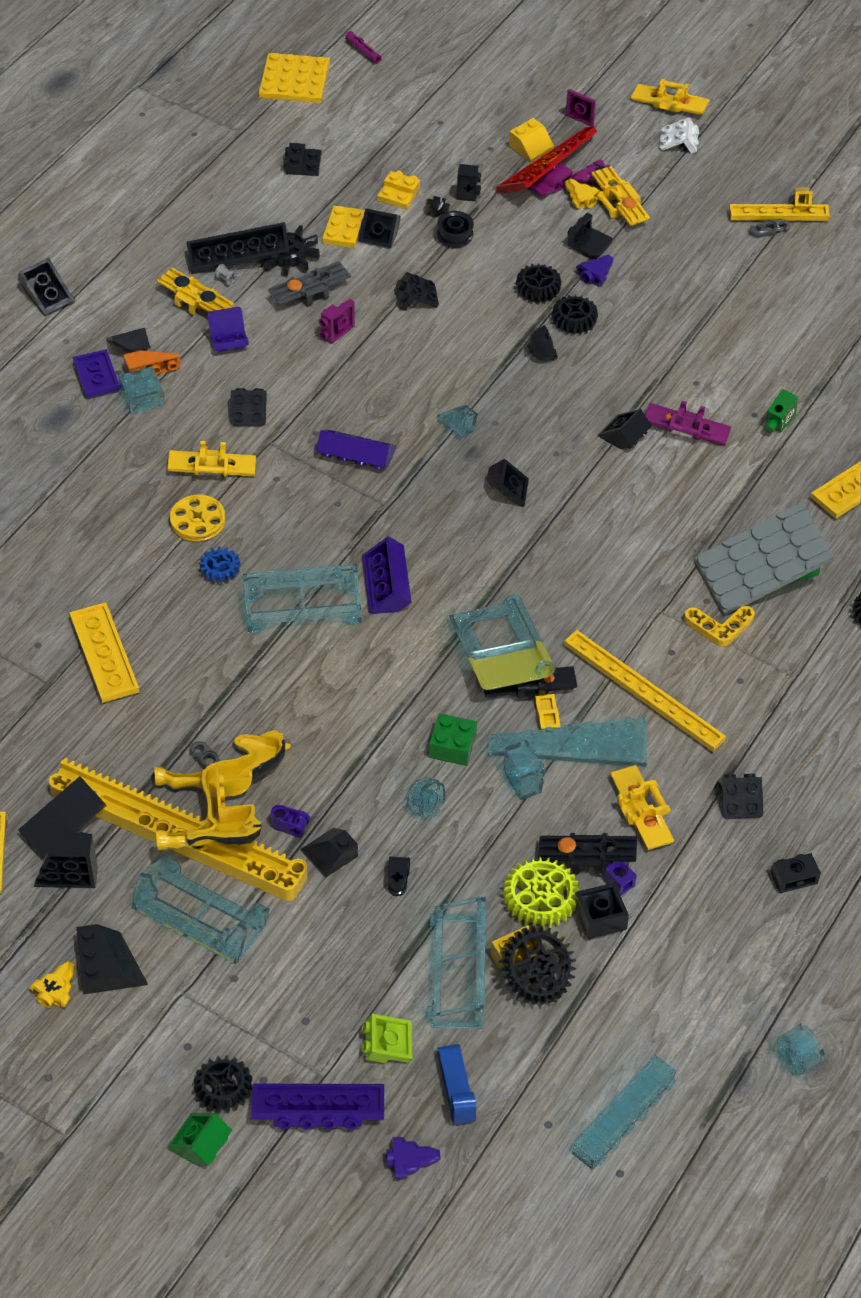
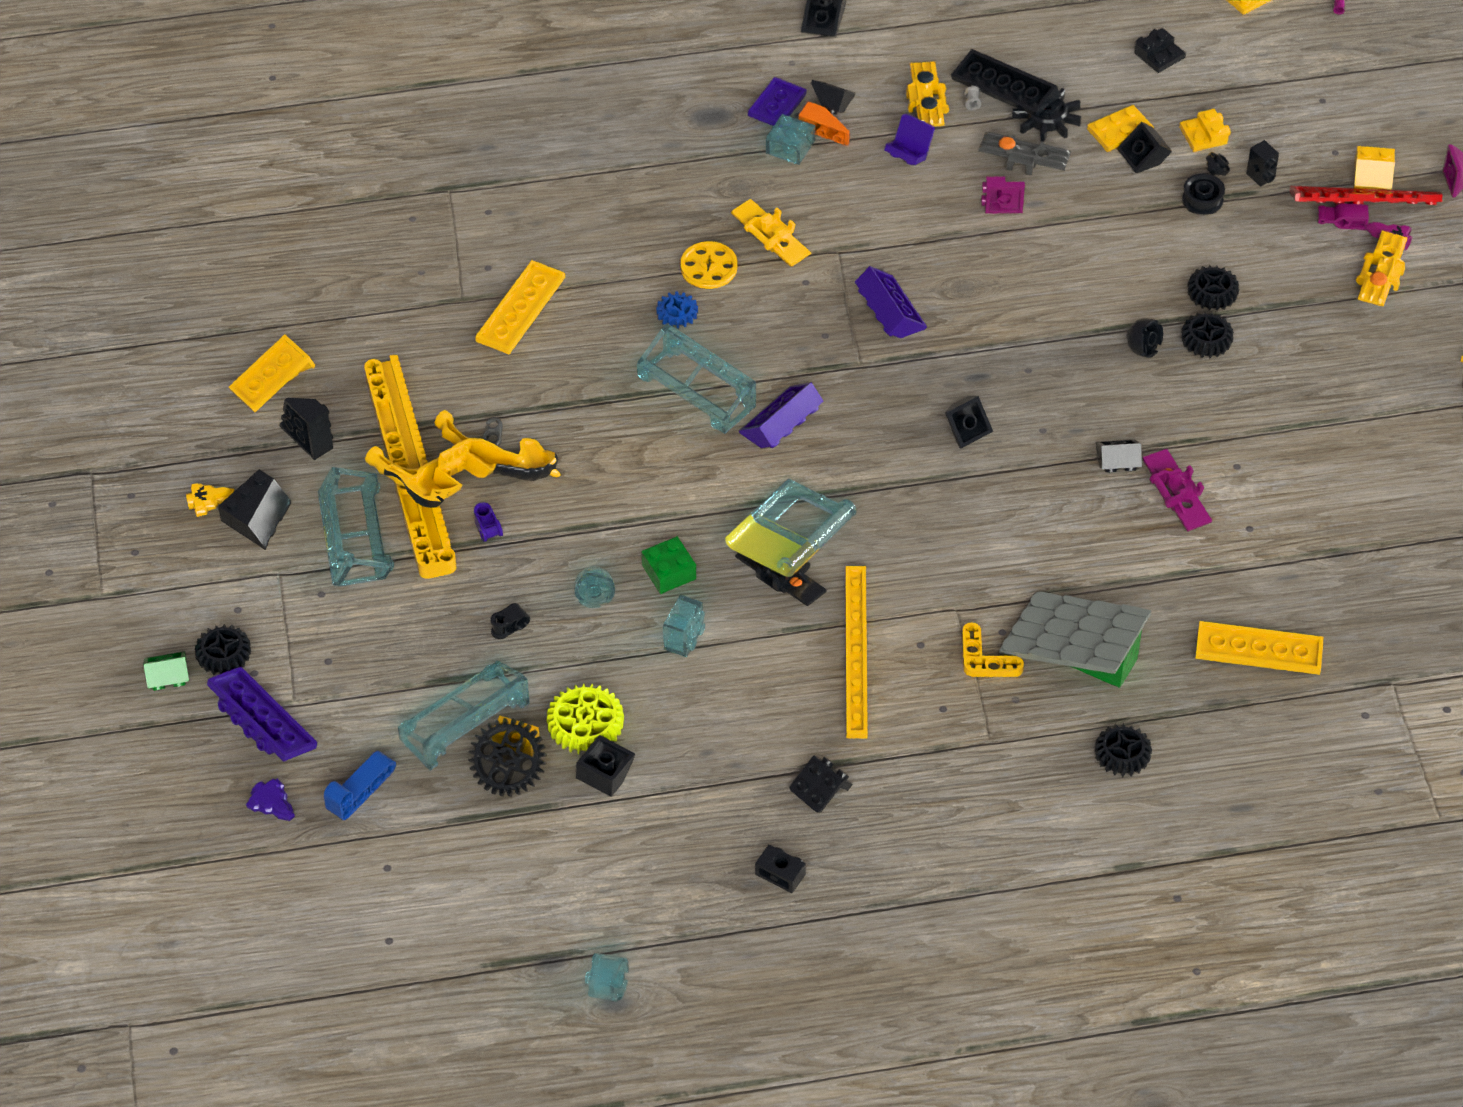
camera: 50 degrees right, 0 degrees up
(62, 816) = (348, 391): black tile -> none
(248, 407) = (851, 211): black bracket -> none
(331, 851) = (488, 568): black slope -> none
(387, 1039) = (356, 717): lime plate -> none
(412, 288) = (1105, 221): black bracket -> none
(459, 419) = (995, 344): clear light blue slope -> none
(547, 711) = (766, 606): yellow slope -> none
(581, 194) = (1355, 244): yellow rock -> none
(587, 239) = (1307, 282): black bracket -> none
(588, 850) = (645, 717): black piece -> none
(595, 270) = (1278, 313): dark purple rock -> none
(604, 743) = (771, 659): clear light blue wing -> none
(622, 883) = (649, 764): dark purple brick -> none
(624, 1112) = (440, 904): clear light blue brick -> none
(636, 810) = (728, 727): yellow piece -> none
(781, 412) = (1263, 541): green torso -> none

